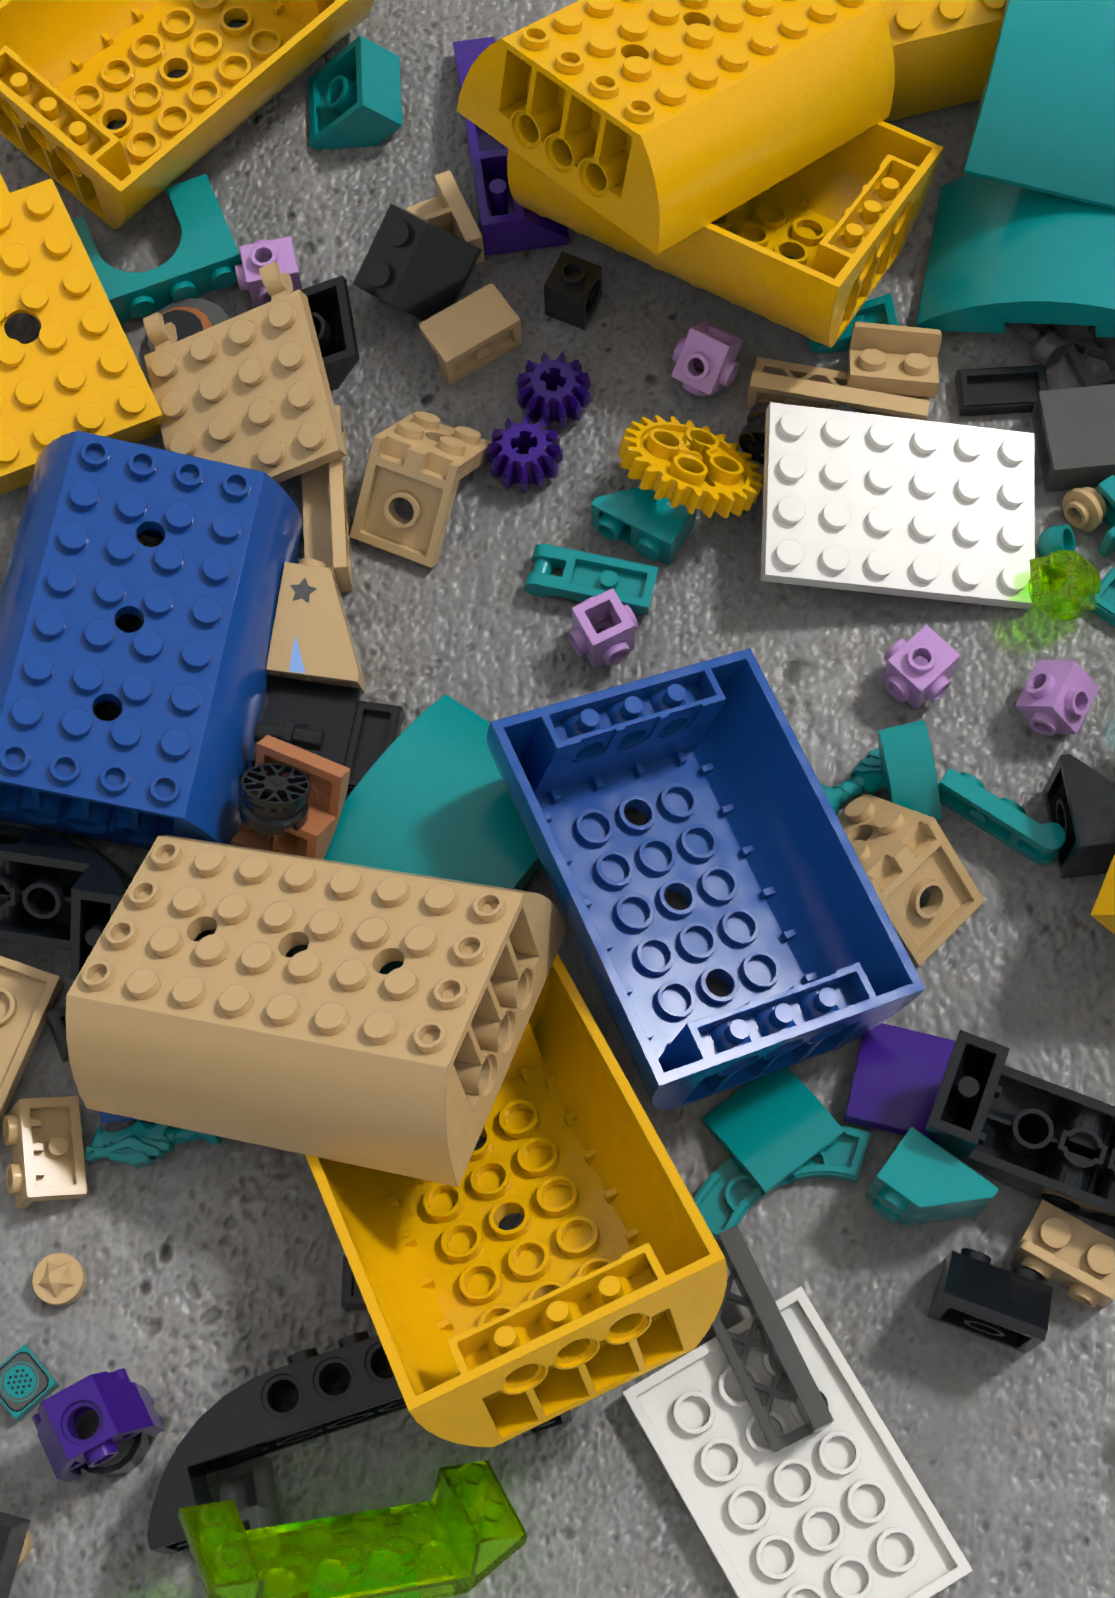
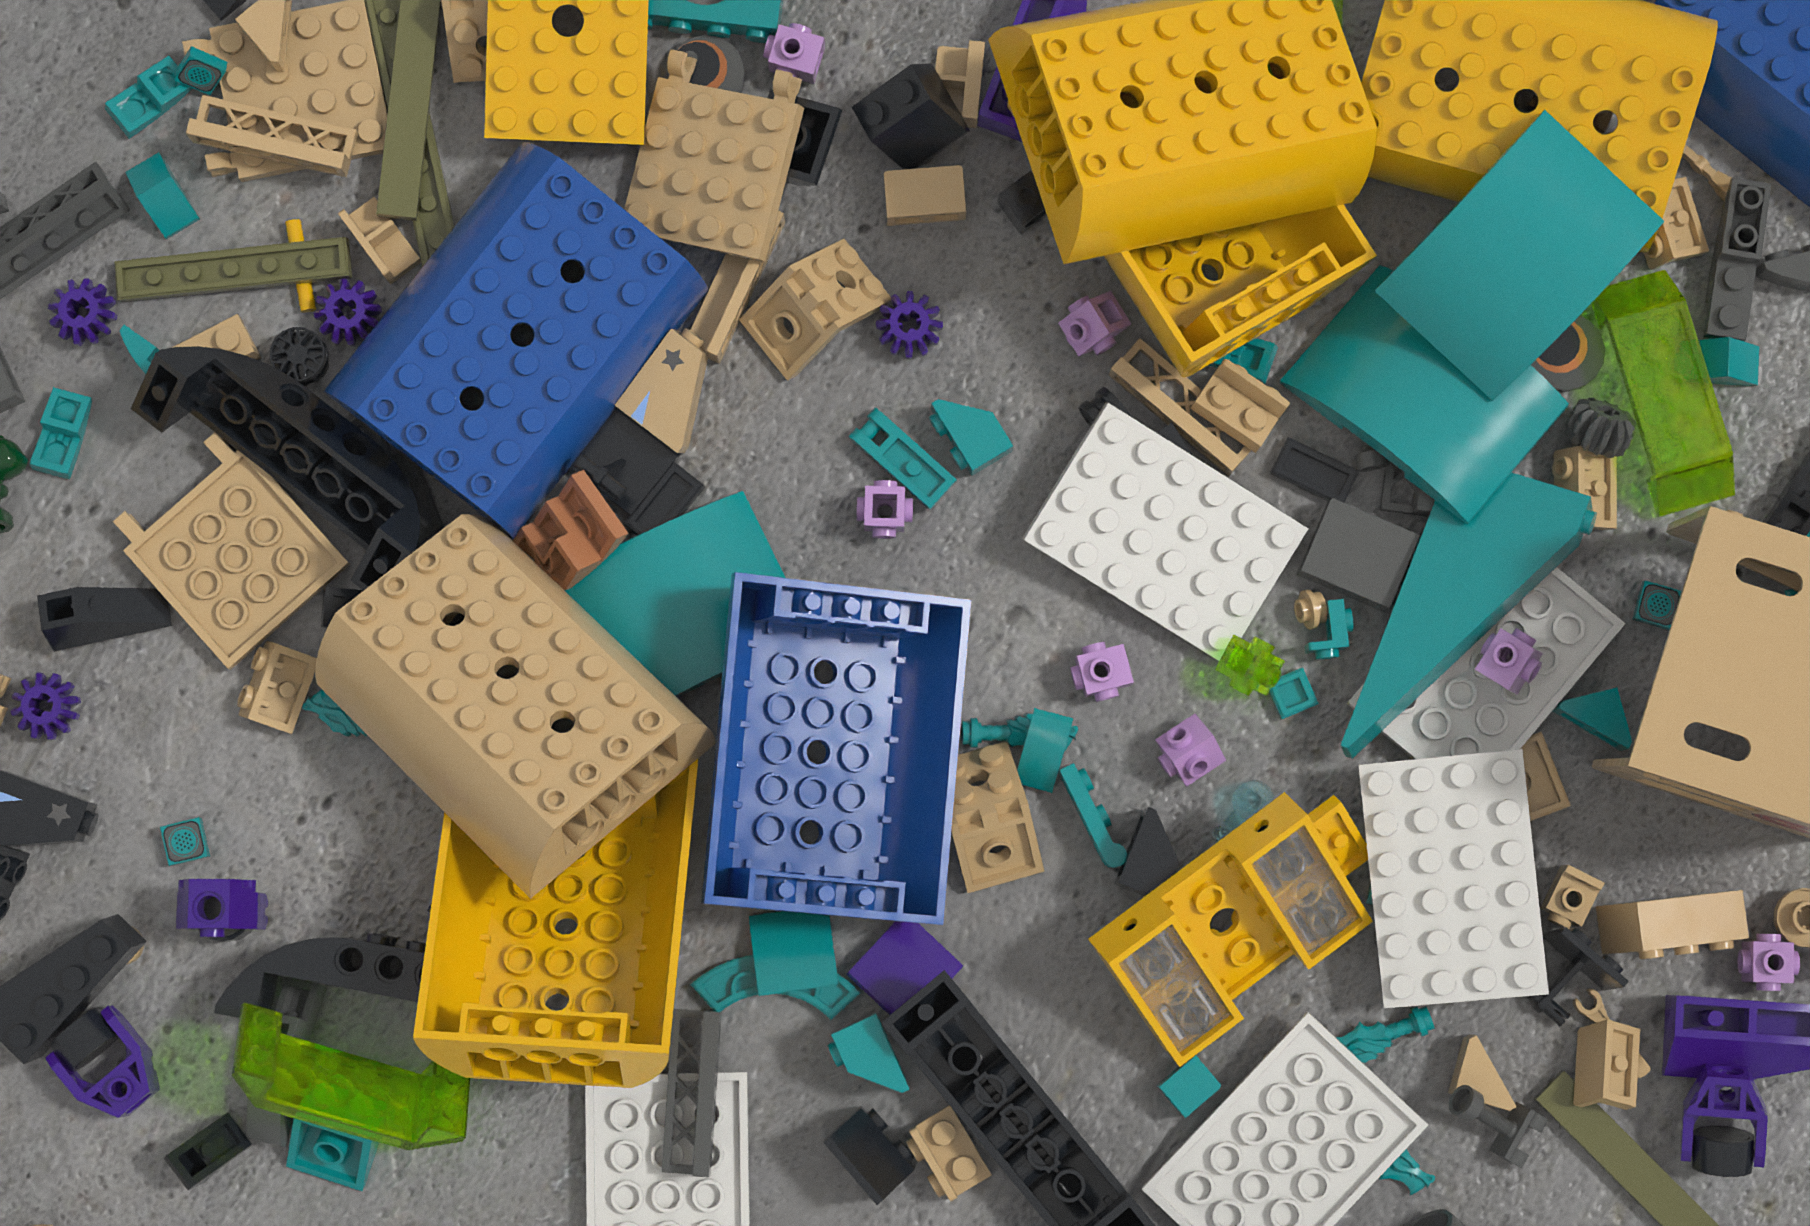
camera: 25 degrees right, 15 degrees up
(59, 1279) = (244, 783): tan tile -> none
(274, 801) = (571, 531): black wheel -> none
(553, 390) = (977, 282): dark purple gear -> none
(690, 466) = (1023, 414): yellow gear -> none
(1056, 539) = (1273, 626): teal hinge -> none

